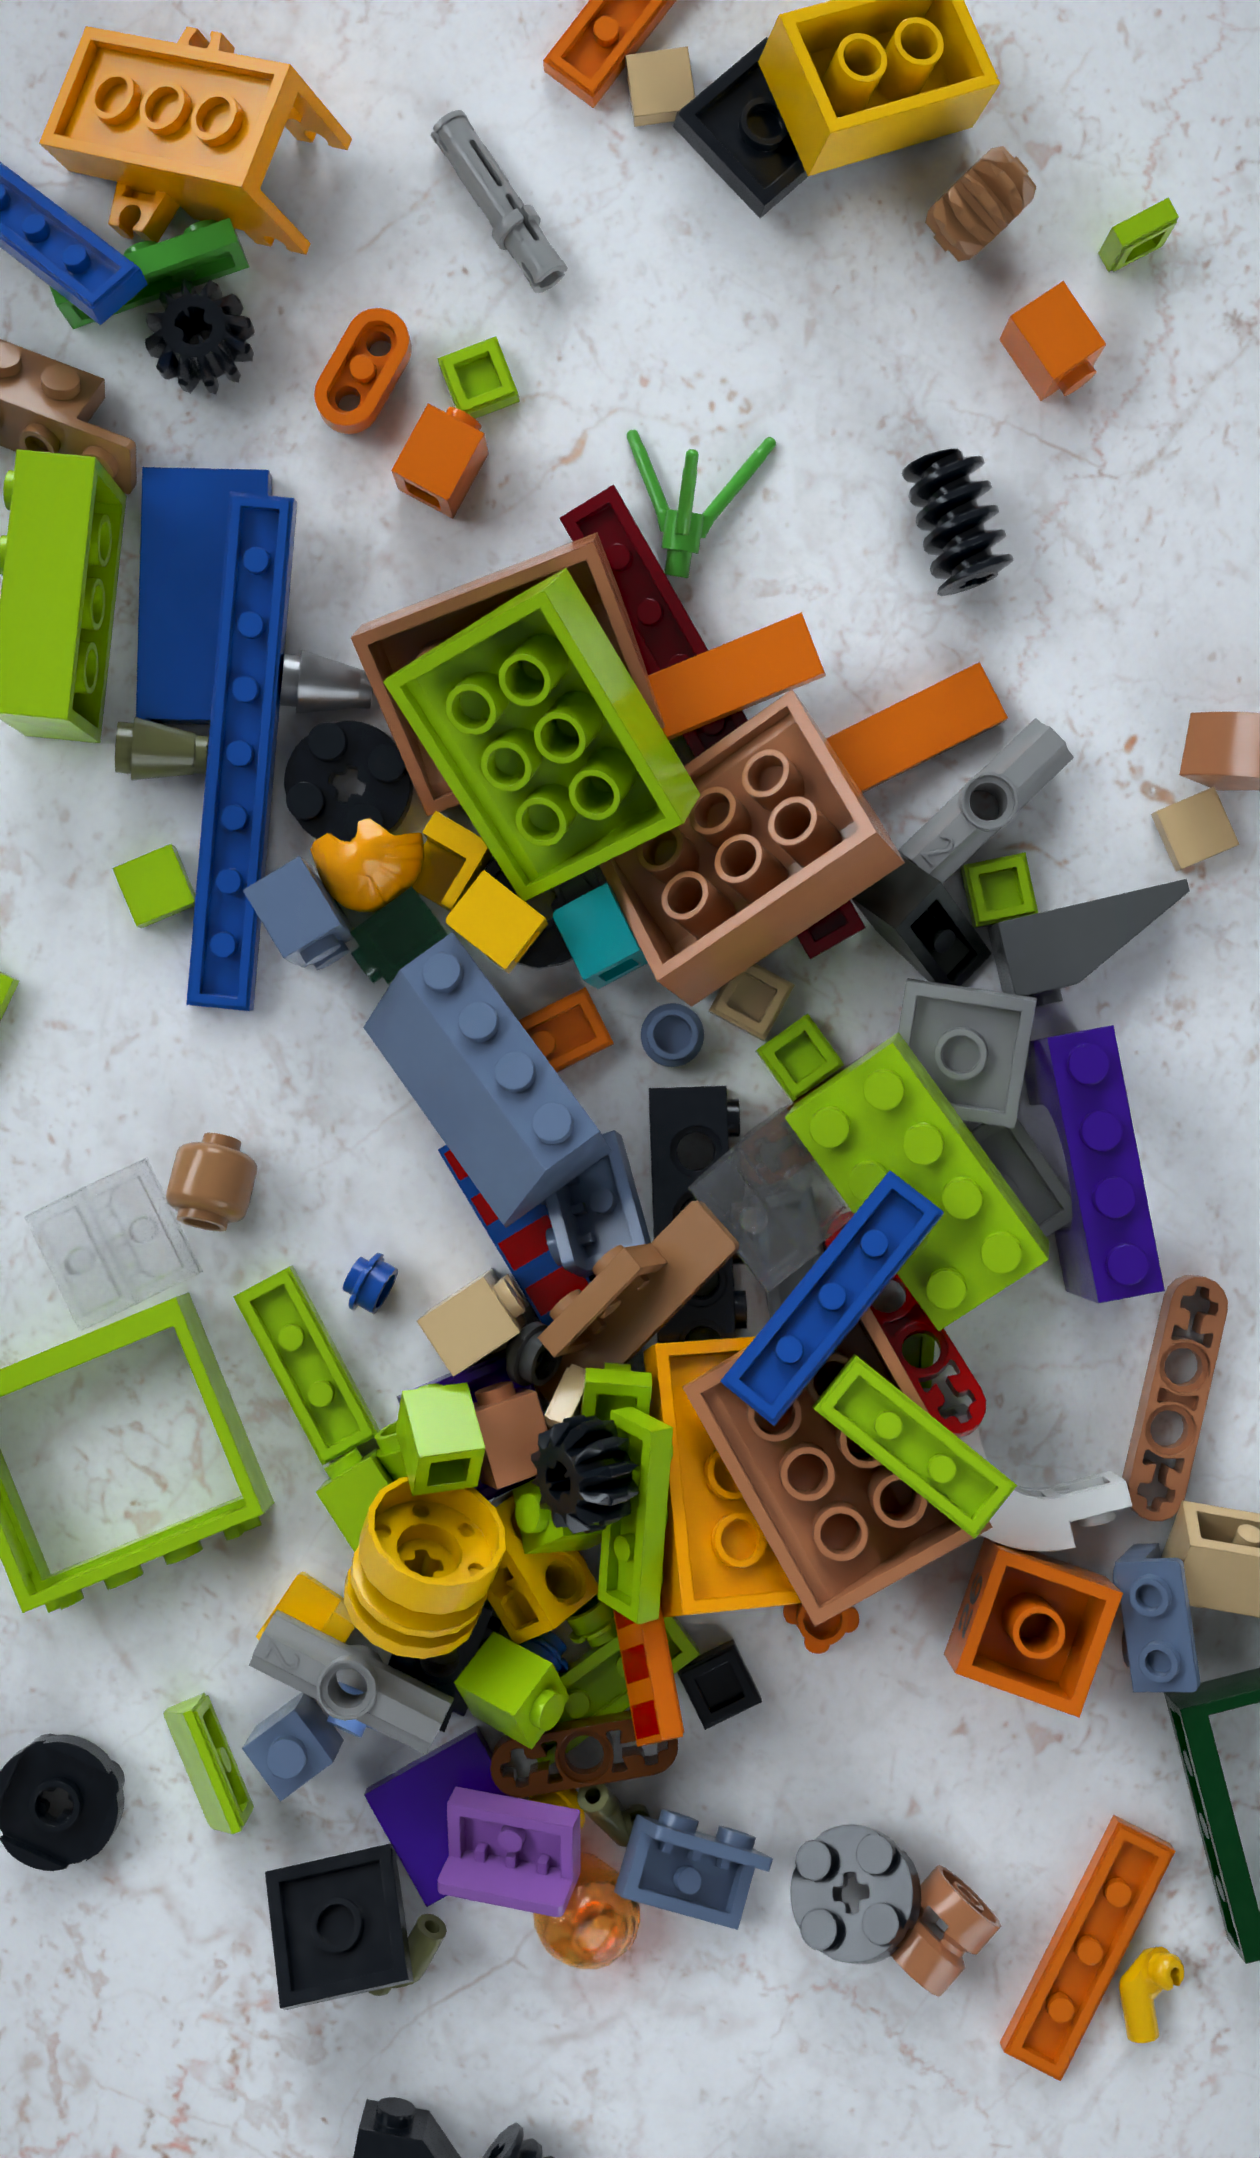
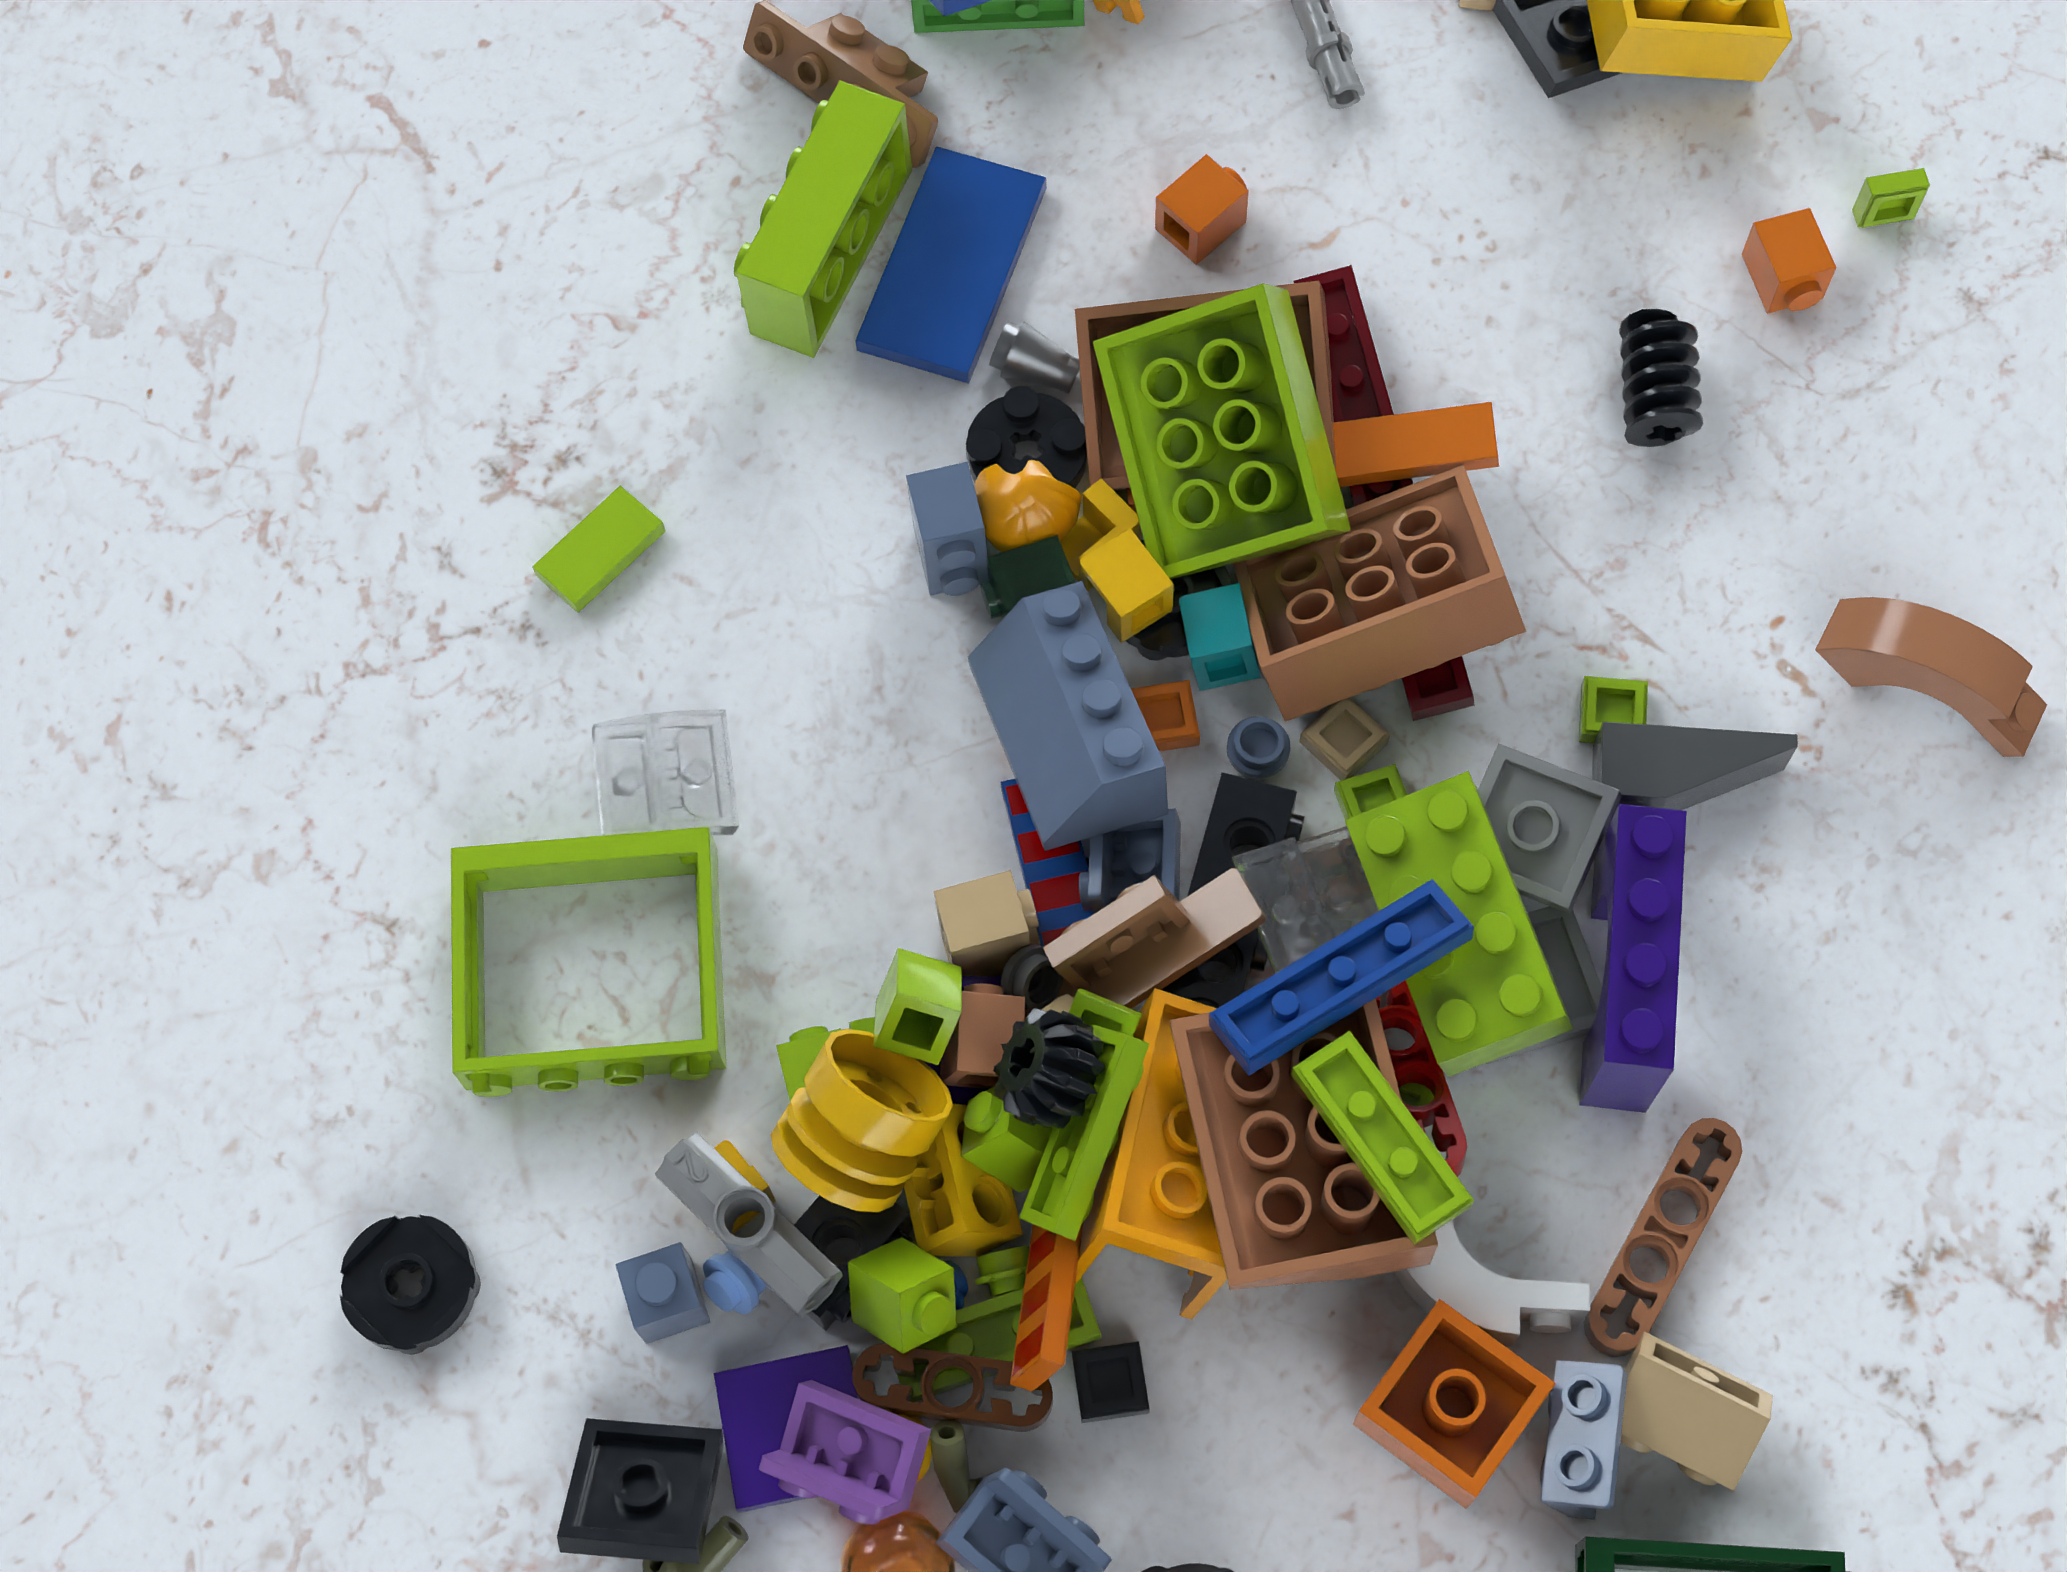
camera: 20 degrees right, 20 degrees down
(155, 886) = (820, 484): lime tile -> none
(158, 750) = (866, 371): olive cone -> none
(188, 317) = (1023, 60): black gear -> none
(209, 1764) = (569, 1294): lime slope -> none
(211, 1182) = (777, 746): medium nougat head -> none
(241, 749) = (938, 394): blue tile -> none
(307, 1365) = (805, 940): lime tile -> none
(359, 373) = (1151, 125): orange plate -> none
(369, 1283) = (894, 883): blue plate -> none
(479, 378) = (1258, 158): lime tile -> none
(682, 527) = (1406, 321): bright green plant -> none
(820, 1638) = (1244, 1324): orange plate -> none
(919, 728) = (1578, 548): orange tile -> none
(923, 924) = (1528, 704): pearl dark grey slope -> none
(981, 204) = (1750, 131): medium nougat gear -> none
(1011, 778) = (1589, 643): light grey piece -> none
(1195, 829) = (1820, 709): tan tile -> none

